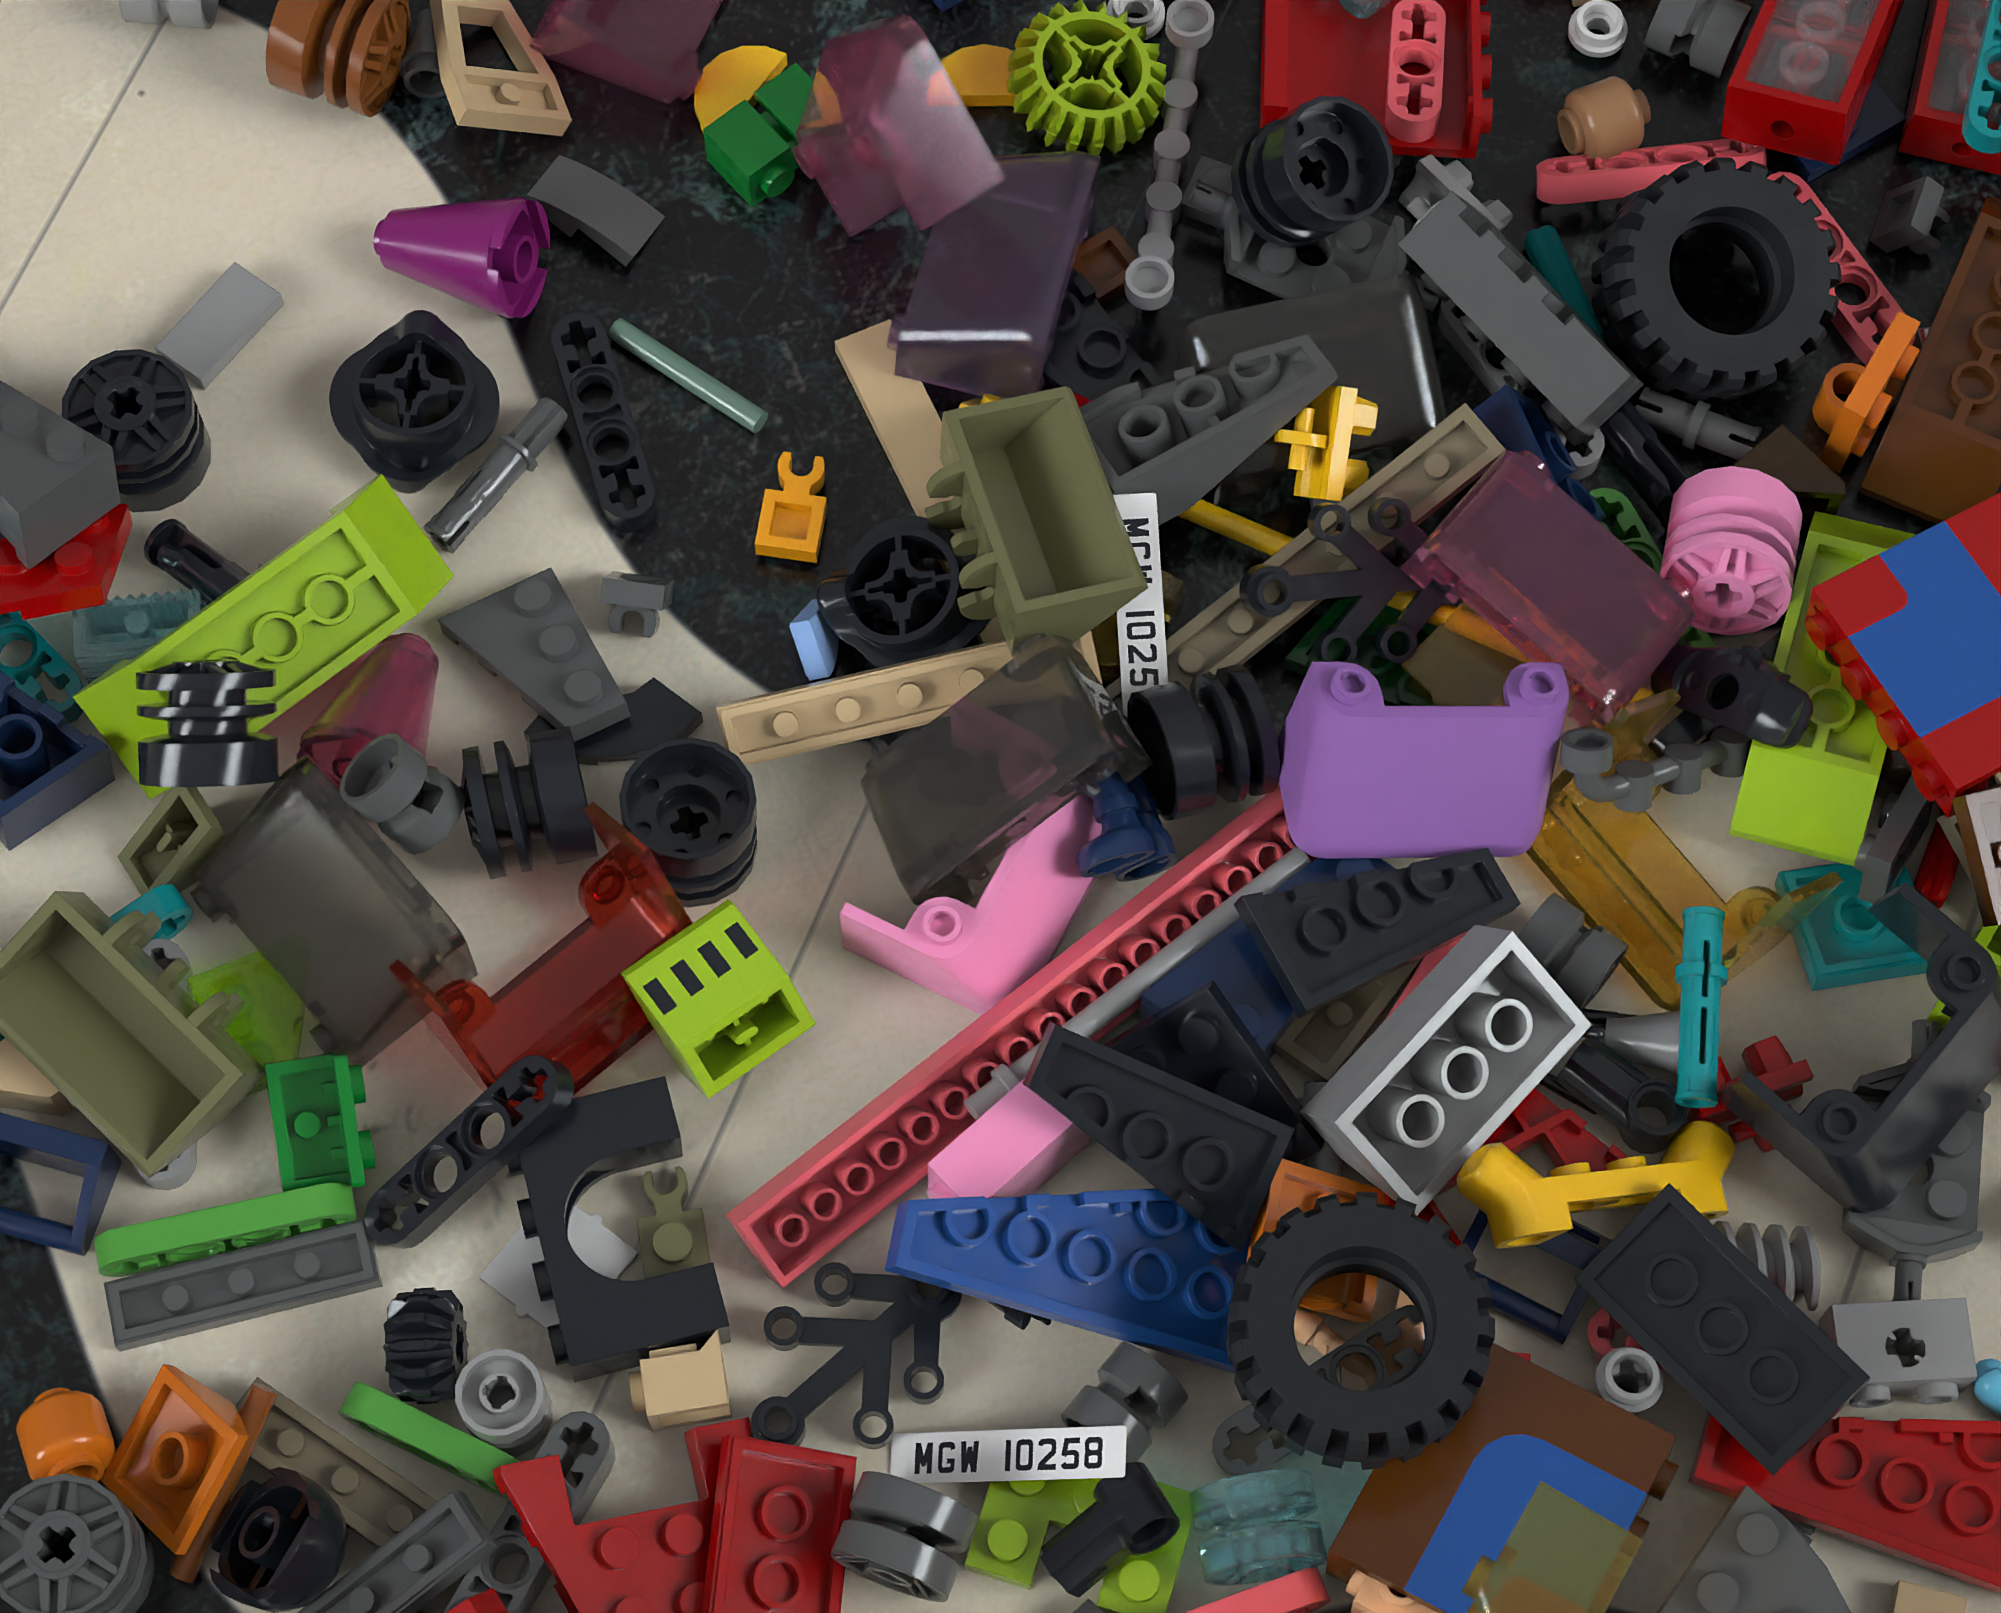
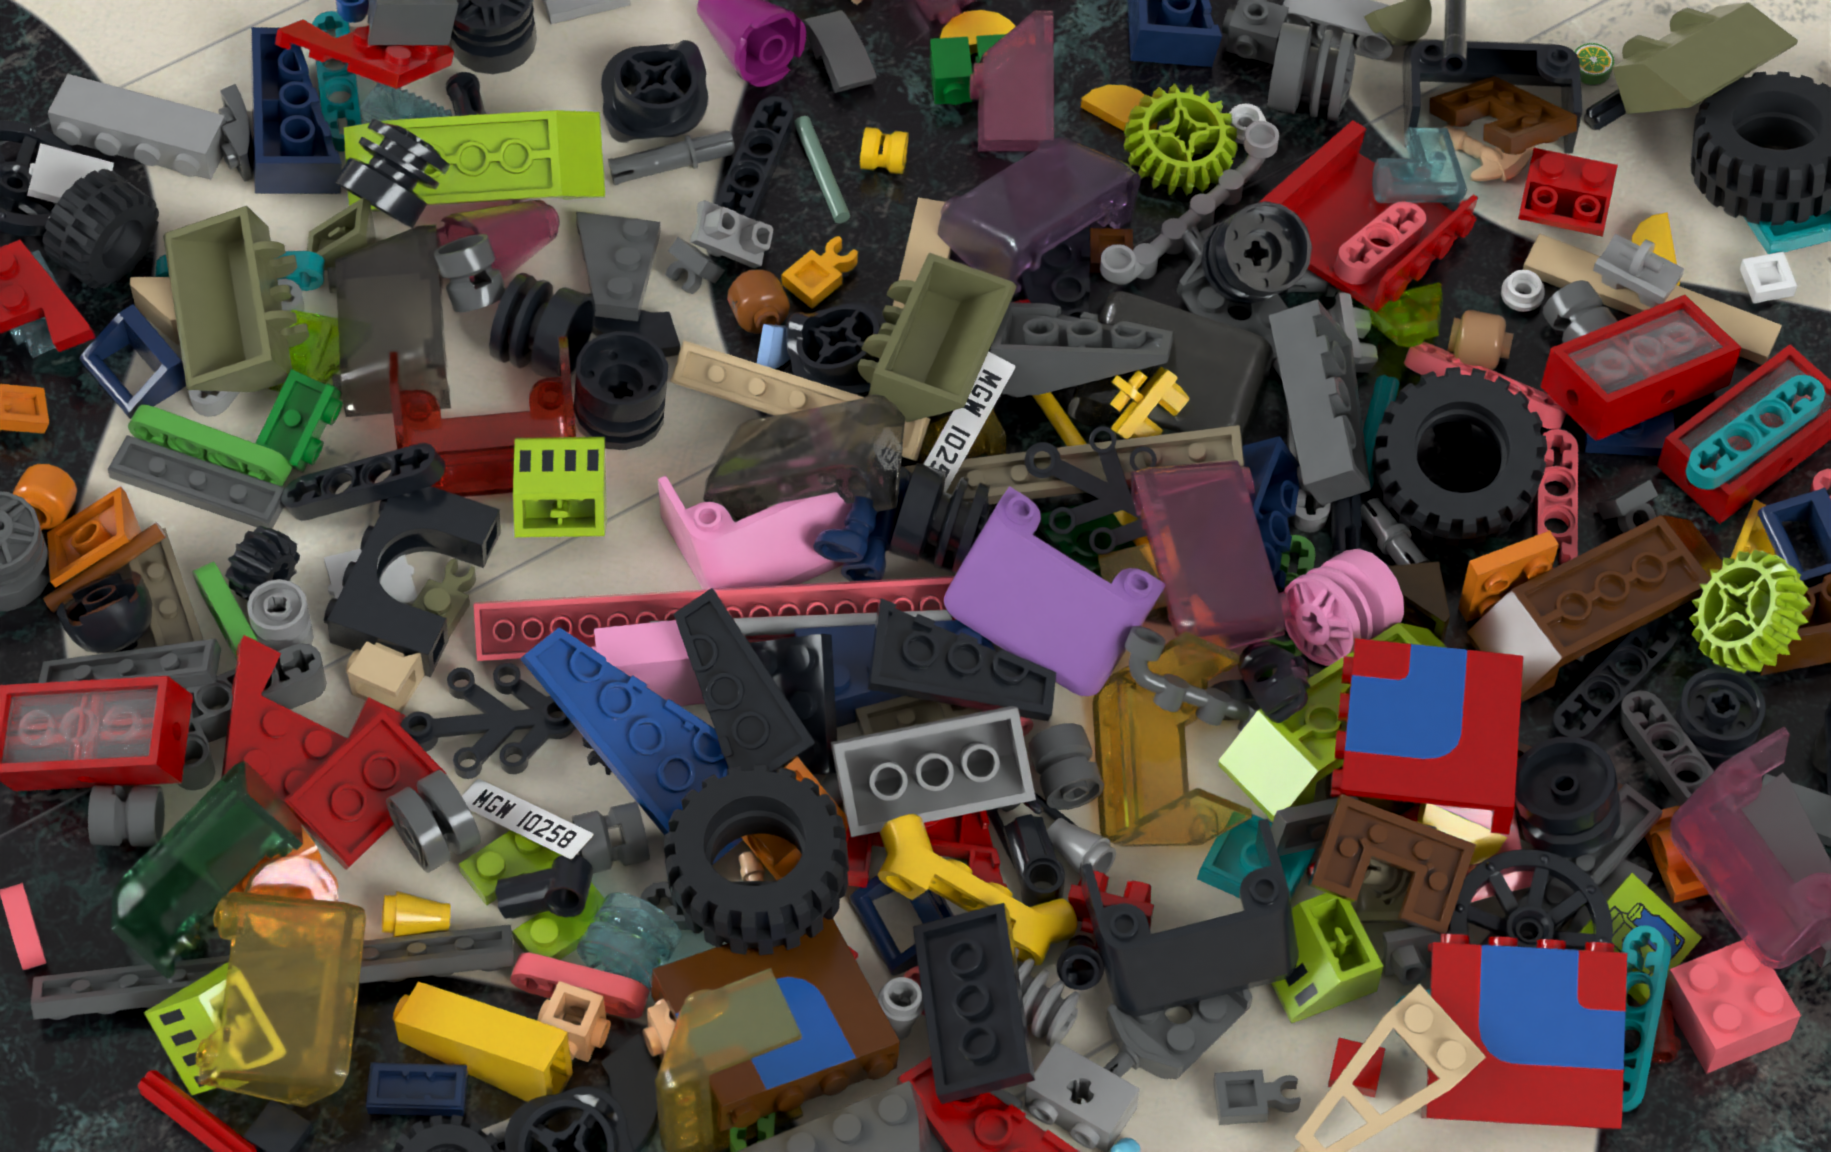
camera: 35 degrees right, 10 degrees down
(660, 530) = (731, 234): none -> light grey hips
(749, 305) = (893, 154): none -> yellow wheel
(753, 596) = (757, 299): none -> dark orange head
(1521, 141) = (1412, 316): none -> clear neon green wing
(1701, 983) = (1122, 818): teal pin -> none
(1777, 1187) = (1080, 964): none -> black cone

